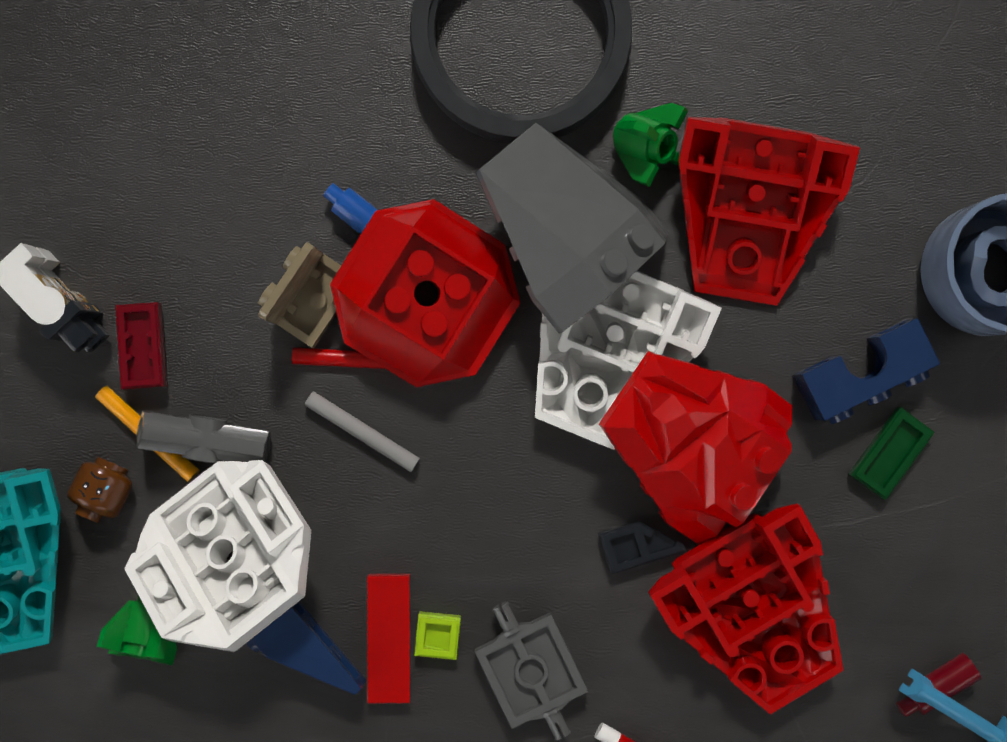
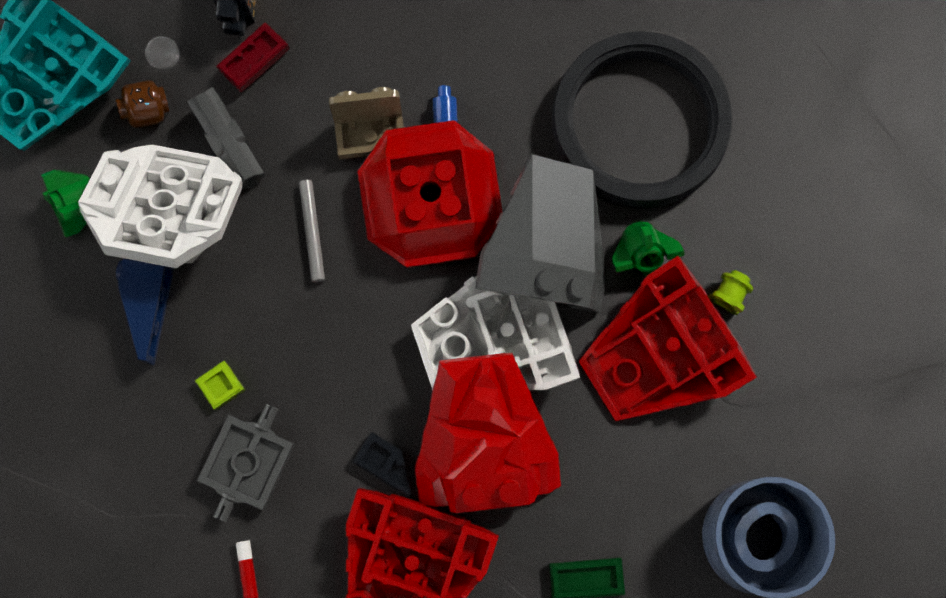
camera: 50 degrees right, 10 degrees down
(61, 428) = (162, 53): none -> clear plate
(131, 419) = (202, 85): light orange bar -> none
(331, 357) = (342, 175): red bar -> none
(388, 638) = (192, 356): red tile -> none
(754, 94) = (732, 291): none -> lime brick
(900, 356) = (653, 528): dark blue arch -> none

